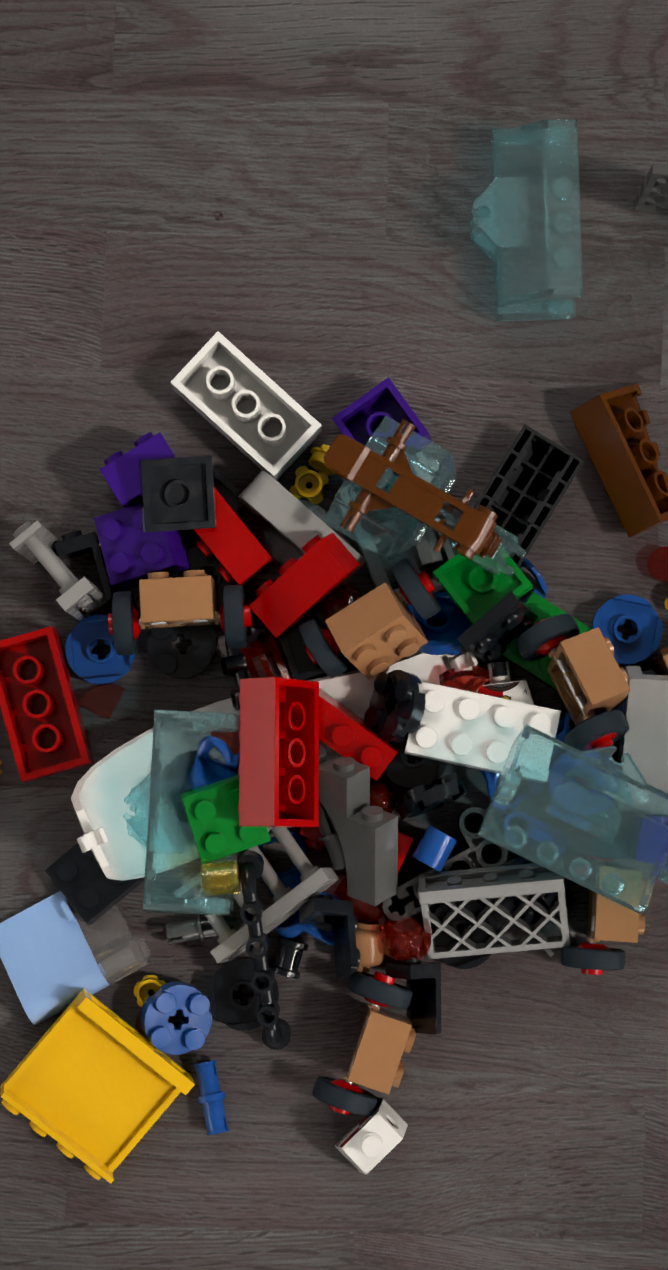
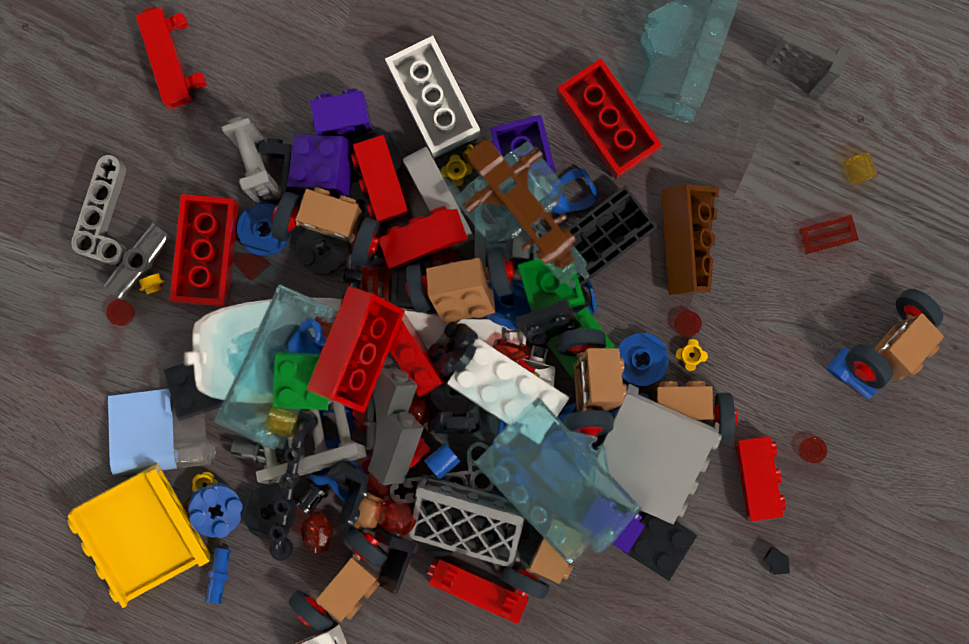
camera: 25 degrees right, 0 degrees up
(177, 493) = (357, 138): black plate -> none
(313, 996) = (317, 532): none -> clear red rock
(472, 350) = (608, 119): none -> red brick
(484, 463) = (564, 205): none -> blue piece
(537, 990) = (477, 590): none -> red brick

